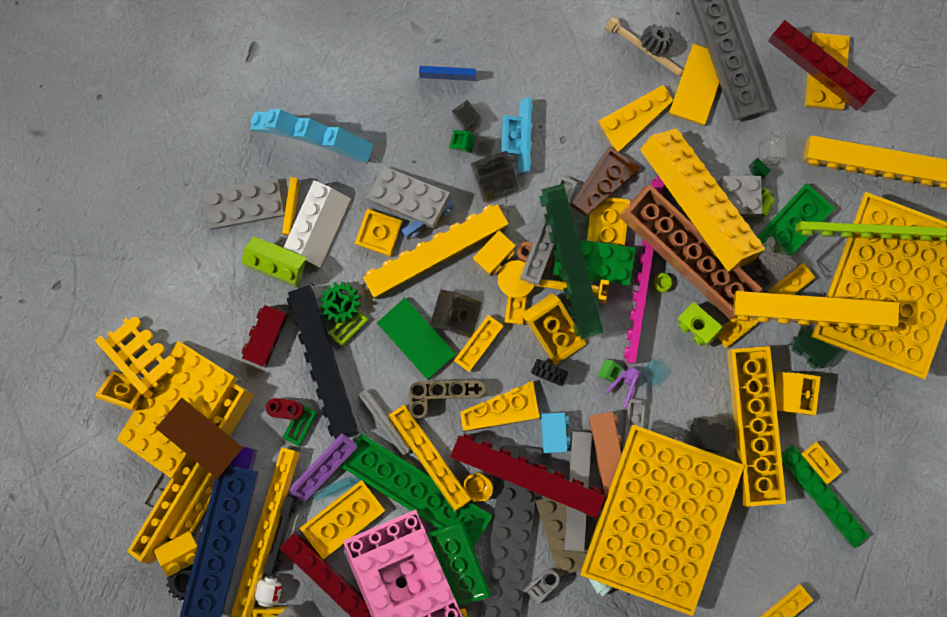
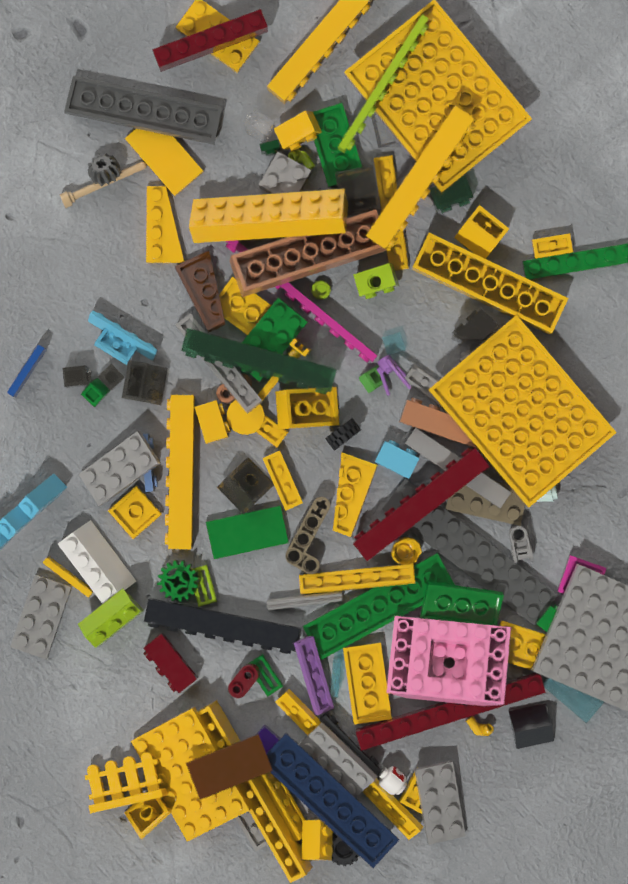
camera: 65 degrees left, 5 degrees up
(259, 532) = (338, 759): none -> light grey plate
(788, 183) = (298, 130): none -> yellow brick

